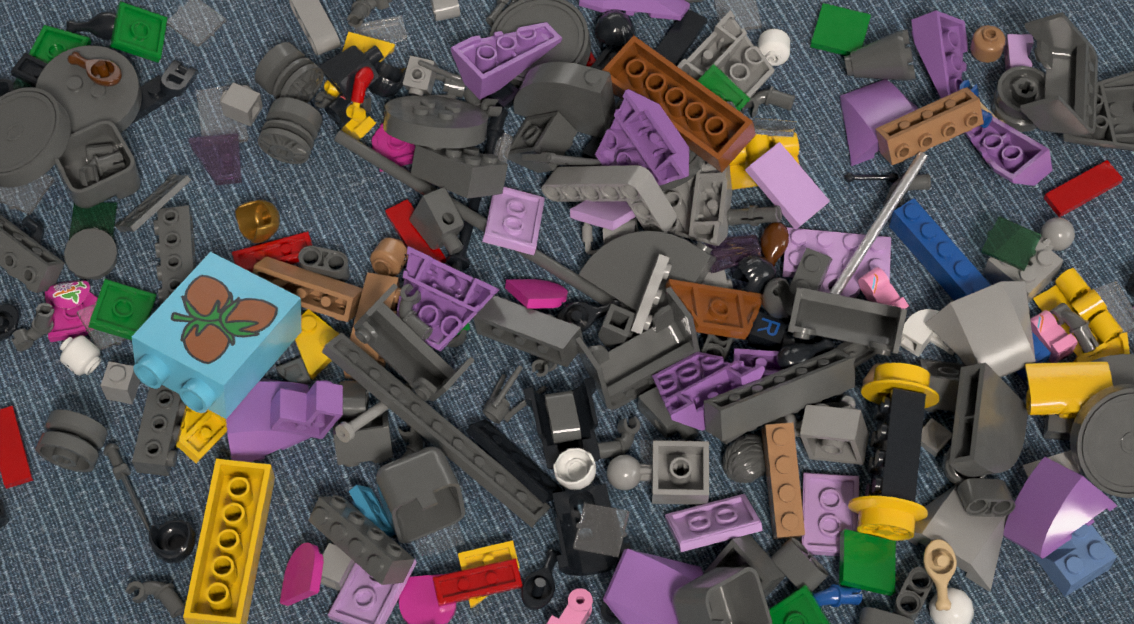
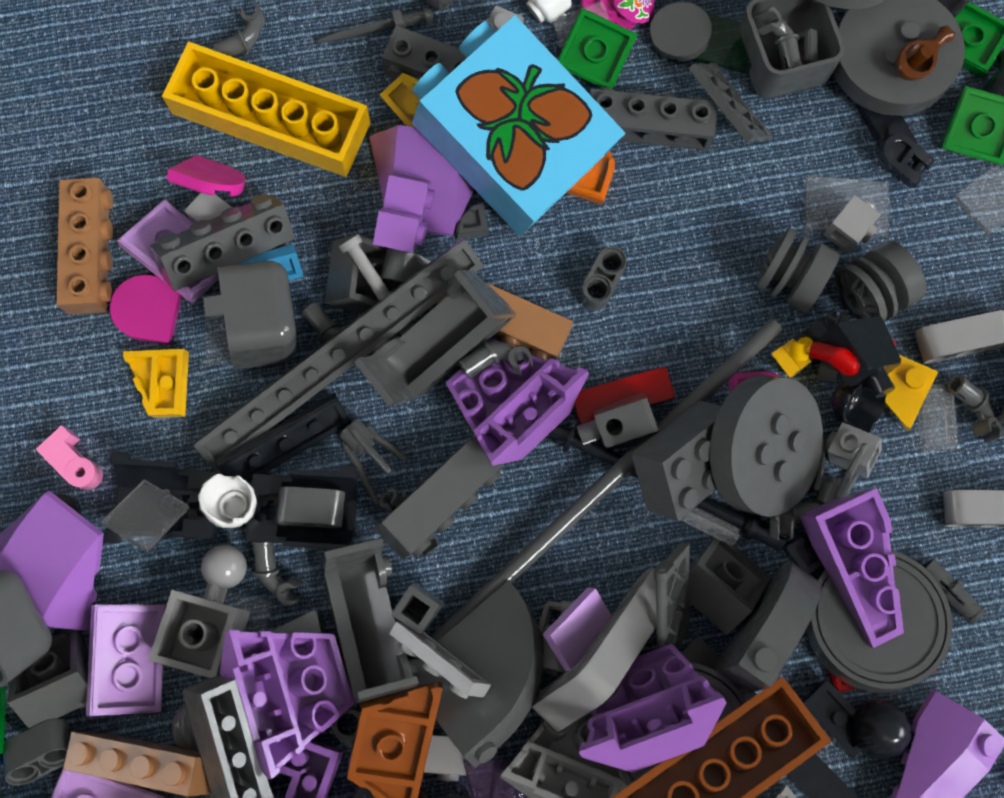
camera: 100 degrees right, 15 degrees up
(172, 541) = (292, 52): black hair -> none
(219, 157) = (783, 190): clear purple wing -> none
(257, 220) = (679, 214): pearl gold hair -> none
(283, 249) = (636, 228): red tile -> none
(311, 342) = (506, 253): yellow wing -> none
(316, 291) = (571, 249): medium nougat brick -> none
(389, 257) = (596, 355): medium nougat head -> none
(477, 582) = (141, 363): red tile -> none
(514, 220) = (606, 518): lavender tile -> none
(537, 293) = (495, 522): dark pink tile -> none
(540, 585) = (120, 433): black piece -> none
(583, 313) = (454, 569): black piece -> none

